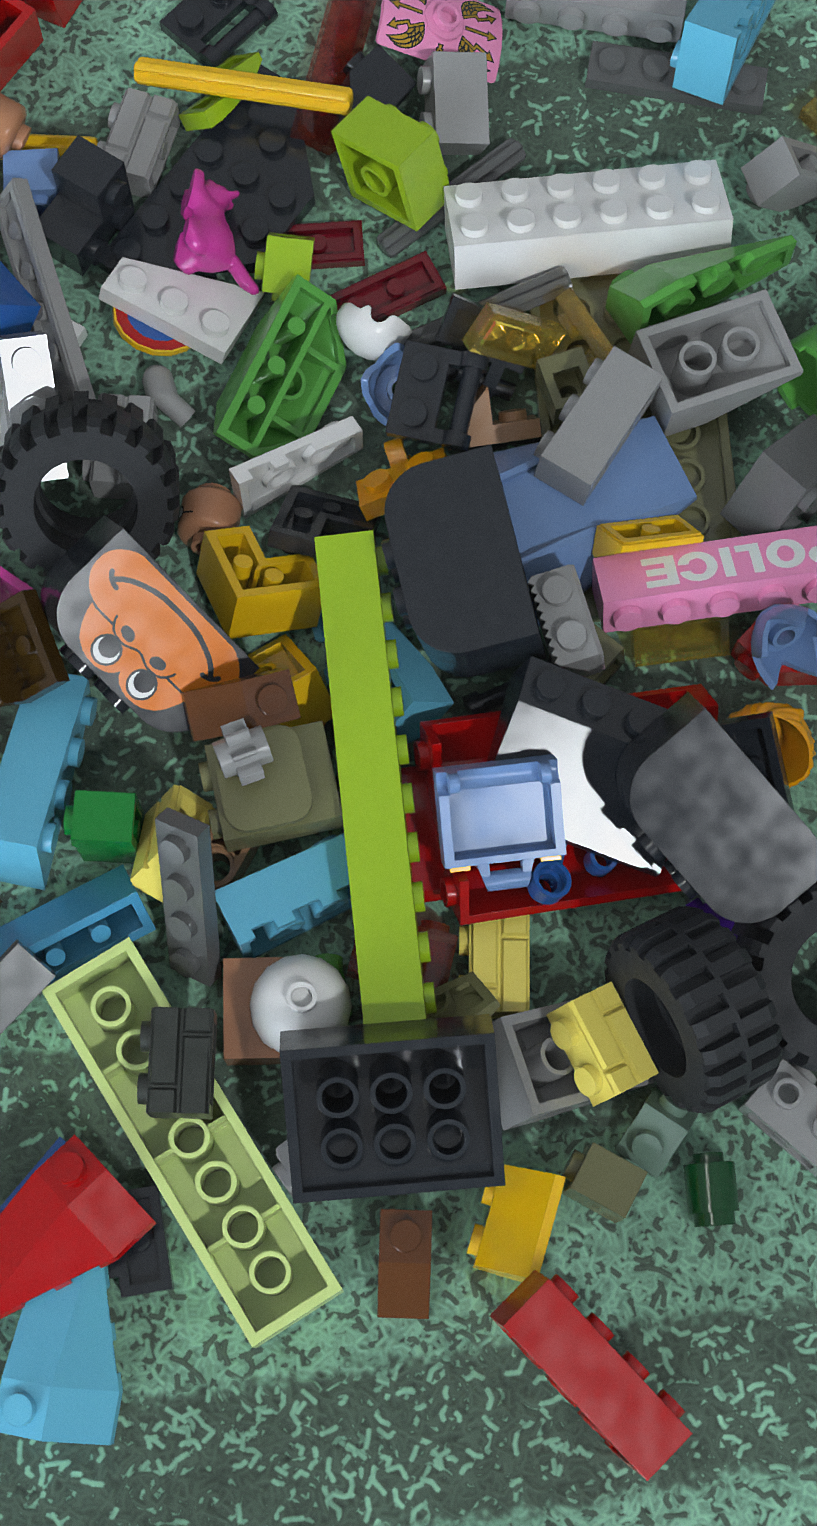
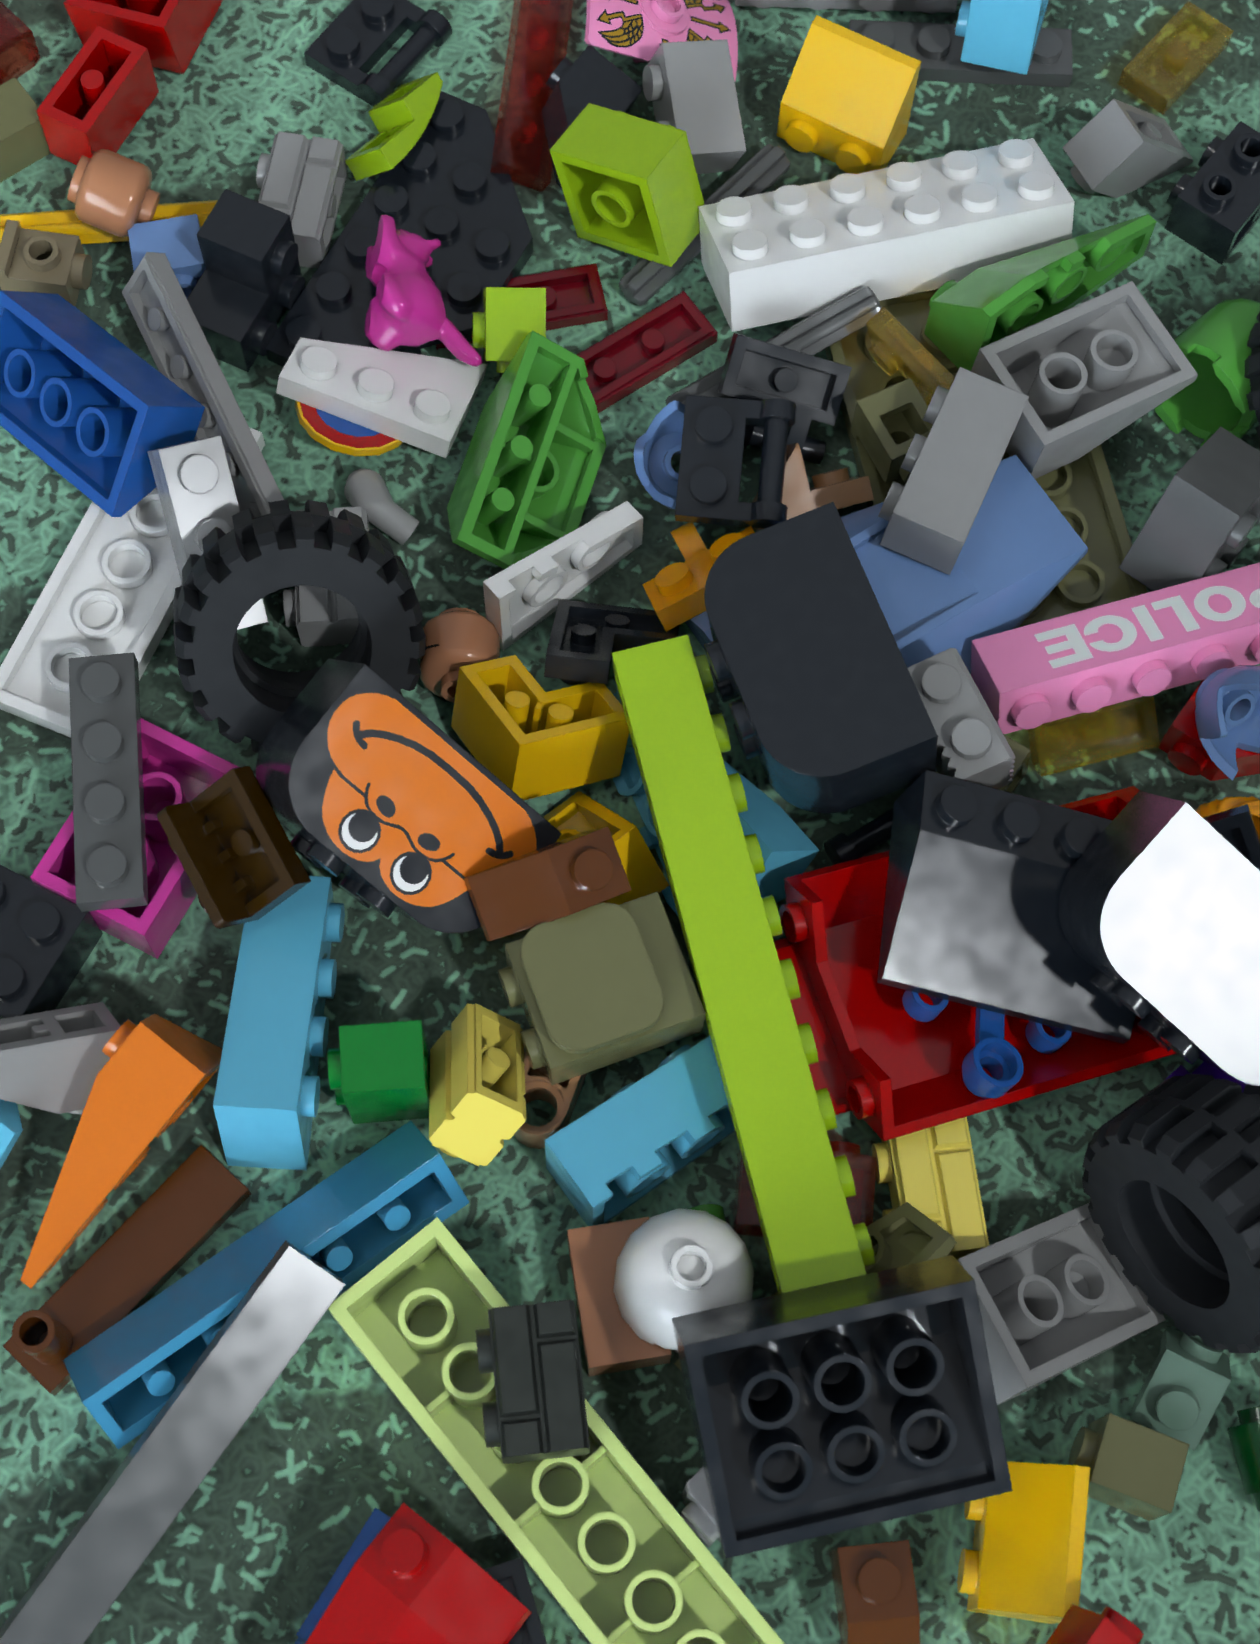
camera: 10 degrees left, 5 degrees down
(188, 896) = (514, 1149): dark grey plate -> none
(242, 751) = (564, 943): light grey gear -> none
(243, 85) = (426, 111): yellow axle -> none
(367, 336) = (630, 398): white hair -> none
(500, 815) = (916, 987): medium blue piece -> none
(513, 335) = (822, 373): clear yellow plate -> none
(576, 111) = (848, 98): none -> yellow slope
(601, 1044) = (1097, 1278): light yellow brick -> none
(643, 535) = (1032, 603): yellow slope -> none

